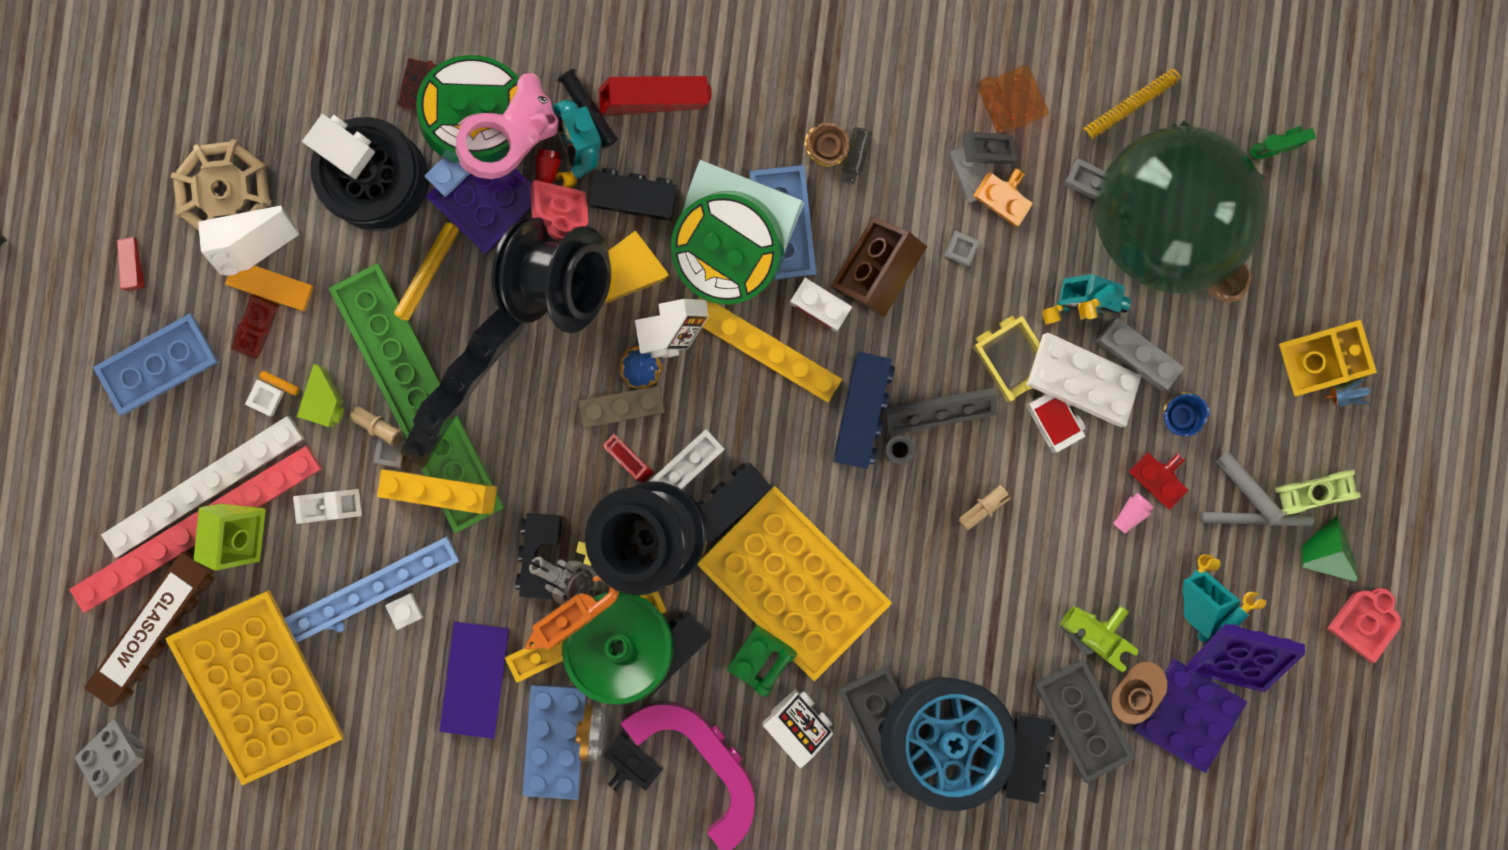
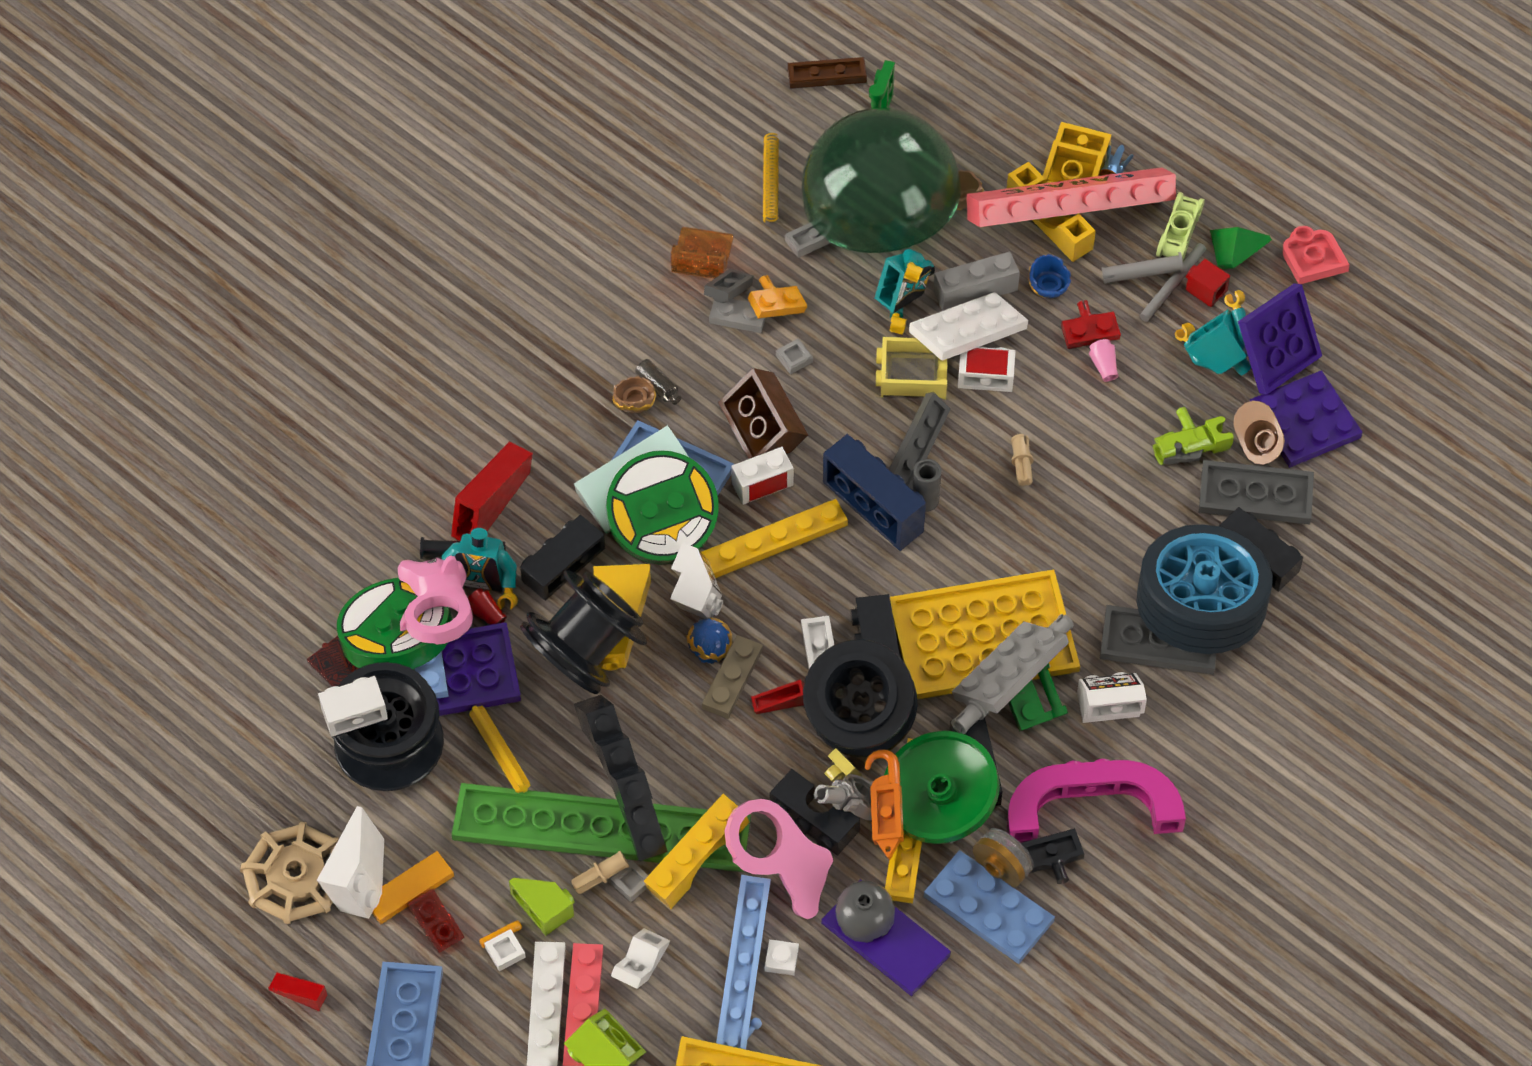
camera: 55 degrees left, 30 degrees down
(479, 572) = (796, 859): none -> bright pink animal
(486, 649) = (865, 911): none -> dark grey cylinder
(558, 207) = (541, 604): coral plate -> none
(763, 635) = (1008, 670): none -> light grey plate
(1261, 350) = (1070, 233): none -> yellow arch
(1274, 550) = (1207, 282): none -> red brick
(1277, 385) = (1071, 197): none -> coral brick
(1281, 75) = (827, 72): none -> reddish brown tile

